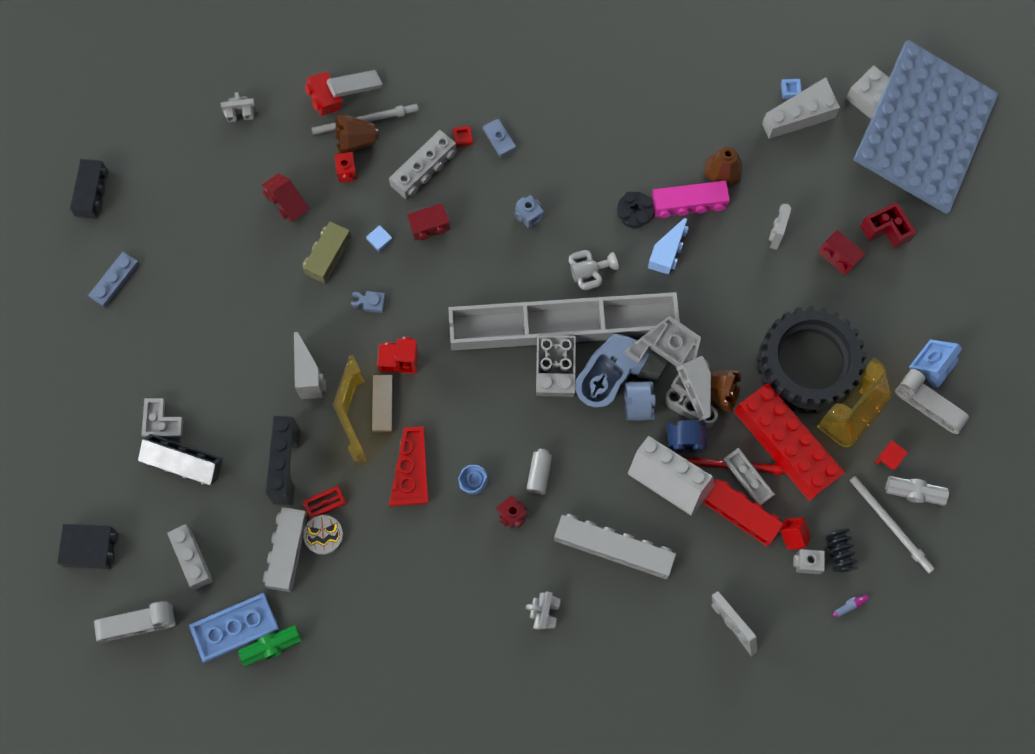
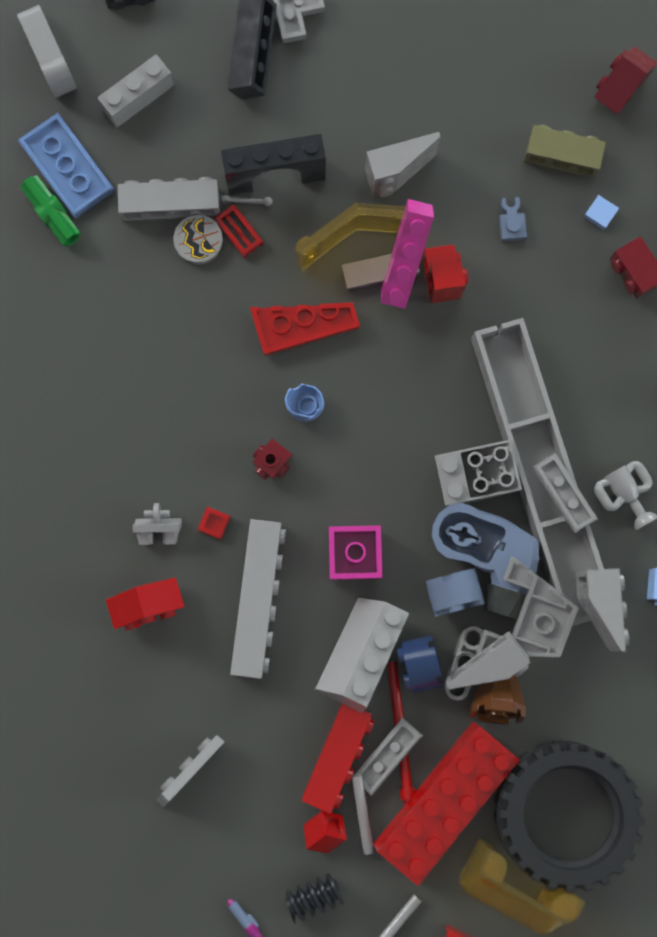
camera: 75 degrees right, 10 degrees up
(306, 476) = (267, 201): none -> light grey hinge
(381, 376) = (407, 253): none -> dark pink brick
(539, 472) = (334, 483): light grey brick -> none
(549, 568) = (214, 523): none -> red tile
(584, 307) = (564, 493): none -> light grey tile
(595, 466) = (355, 553): none -> dark pink brick
(603, 631) = (145, 603): none -> red brick
(671, 297) = (602, 600): none -> light grey slope
(787, 503) = (362, 812): none -> light grey bar
(809, 561) = (290, 856): light grey brick -> none

